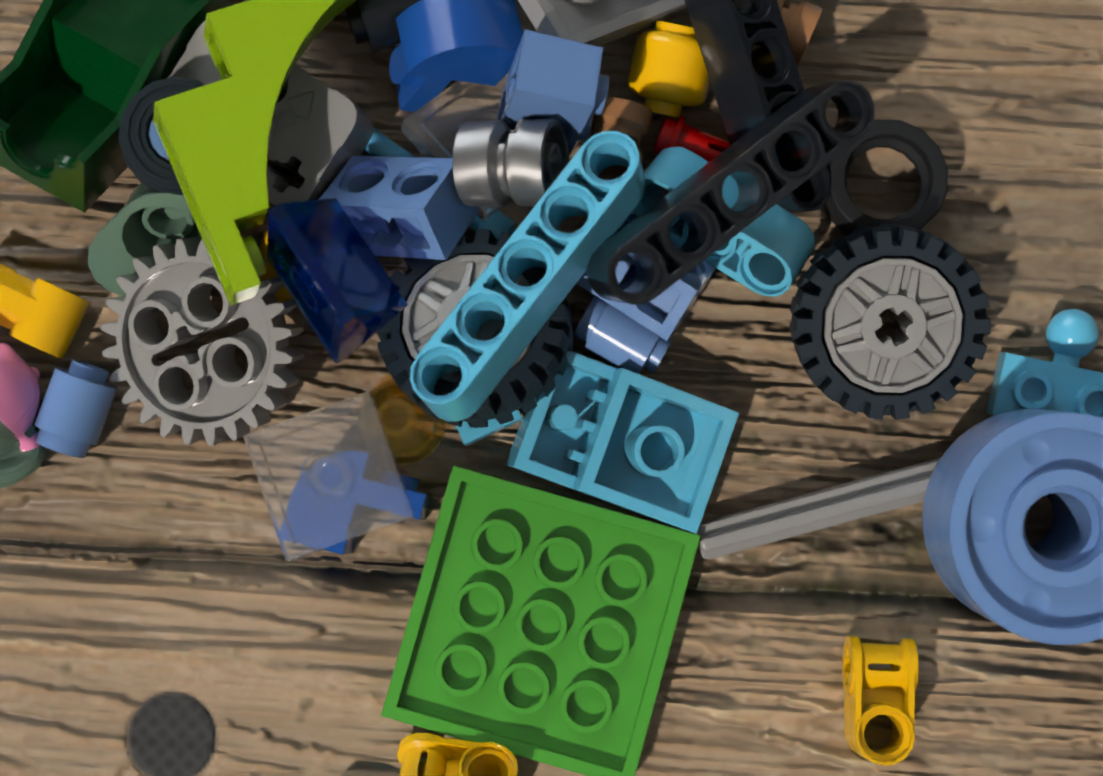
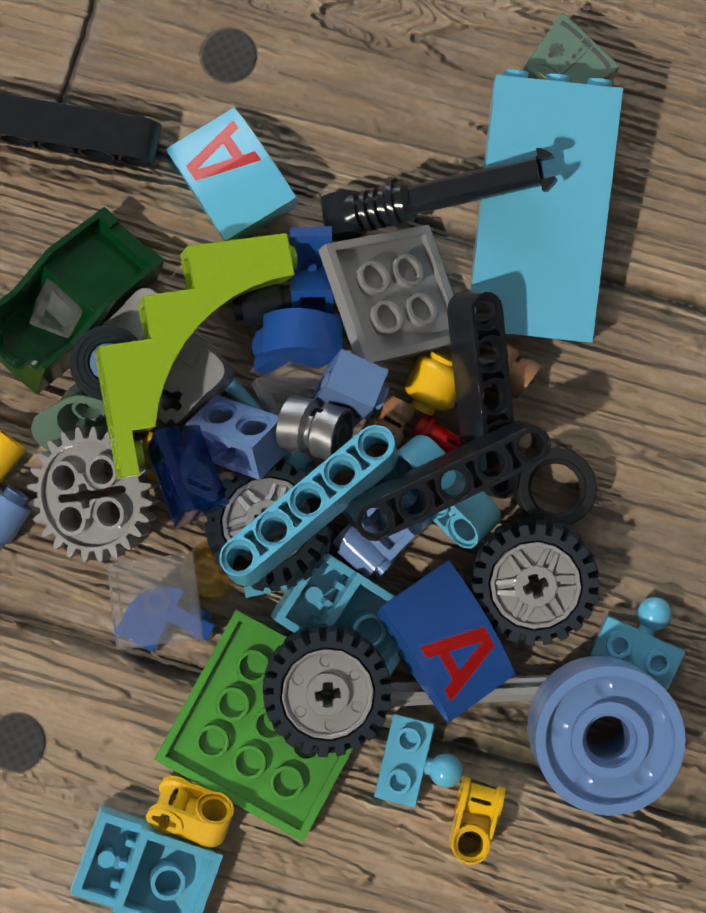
camera: 10 degrees right, 0 degrees up
(86, 83) = (55, 311): none -> clear slope
(661, 573) = (358, 694): none -> wheel
(757, 633) = (408, 760): none -> medium azure plate
(778, 439) = (446, 641): none -> blue slope

